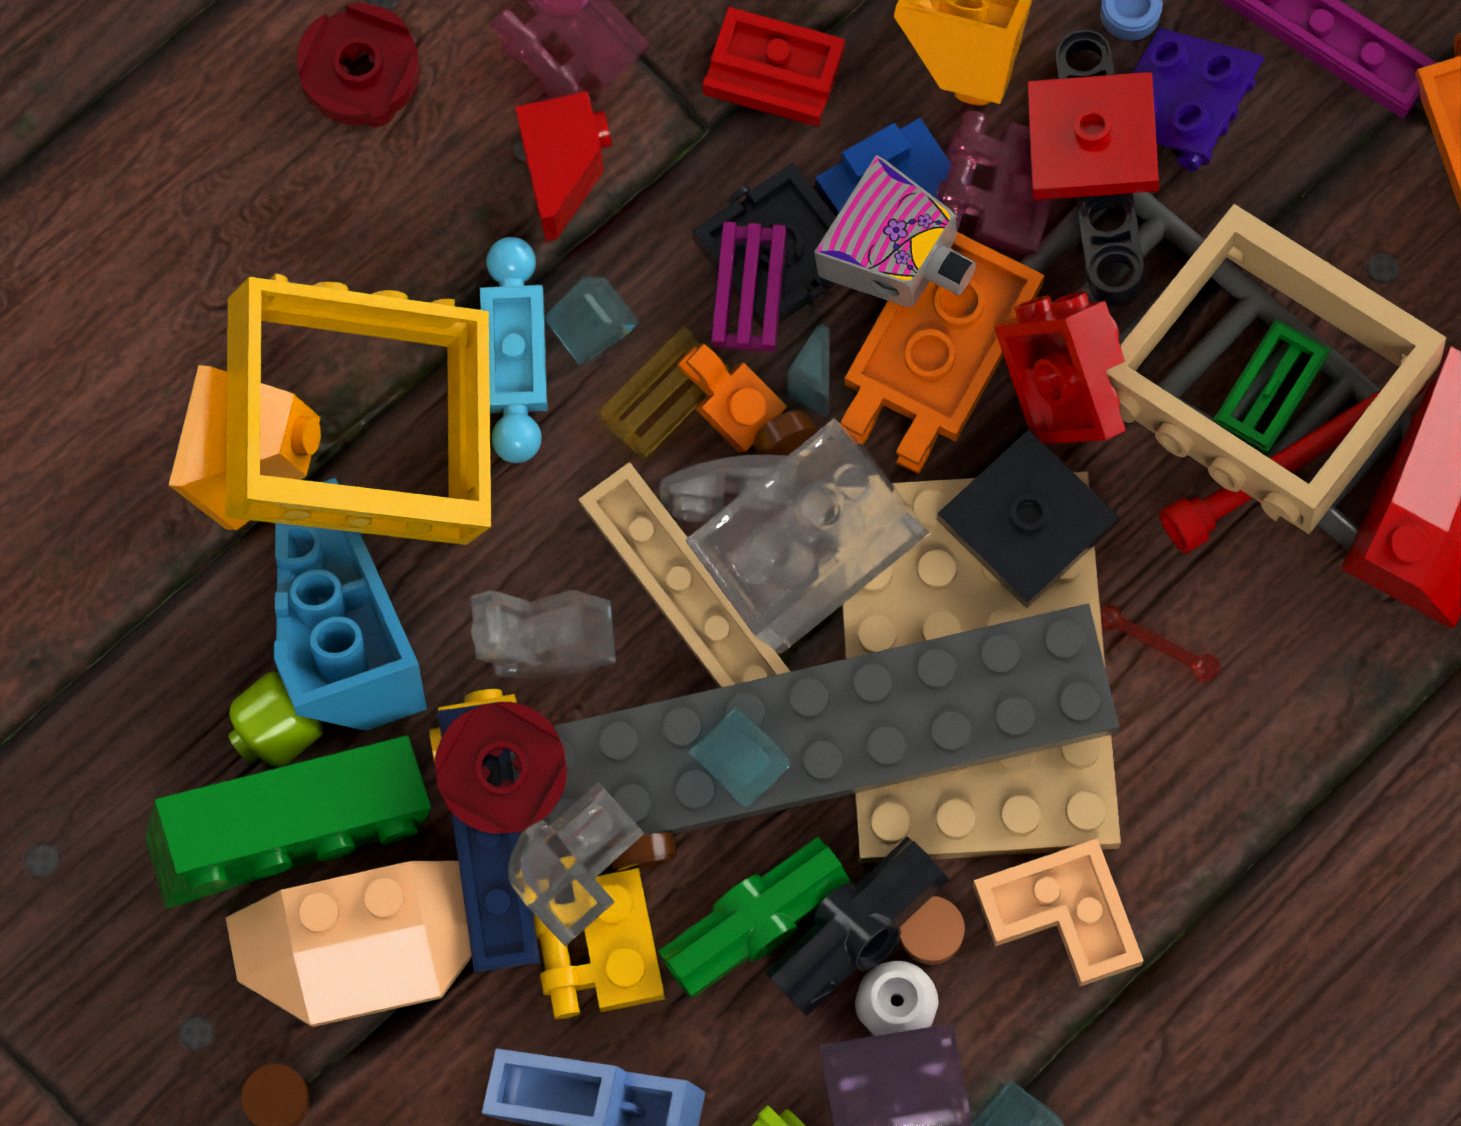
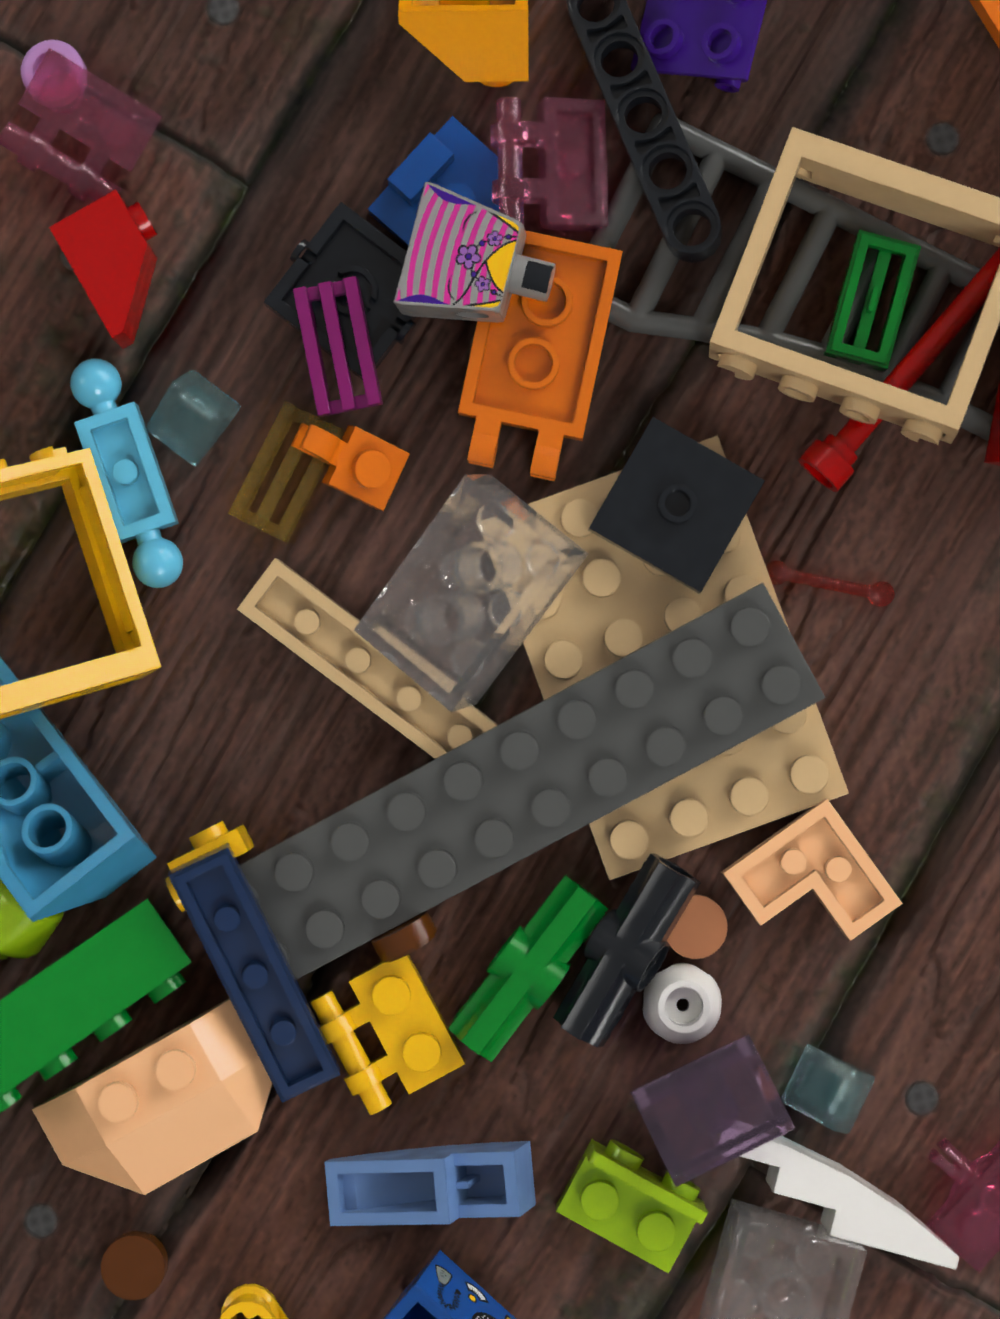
camera: 15 degrees left, 15 degrees up
(491, 731) = (271, 947): dark red plate -> none
(543, 636) = (243, 756): clear brick -> none
(559, 863) = (330, 990): clear brick -> none
(702, 488) = (356, 561): clear slope -> none
(740, 757) = (471, 830): clear light blue slope -> none
(774, 66) = (292, 103): red plate -> none
(784, 433) = (417, 487): reddish brown tile -> none
(810, 373) = (423, 414): clear light blue slope -> none
(1060, 366) = (670, 346): red plate -> none
(1093, 136) = (632, 91): red plate -> none

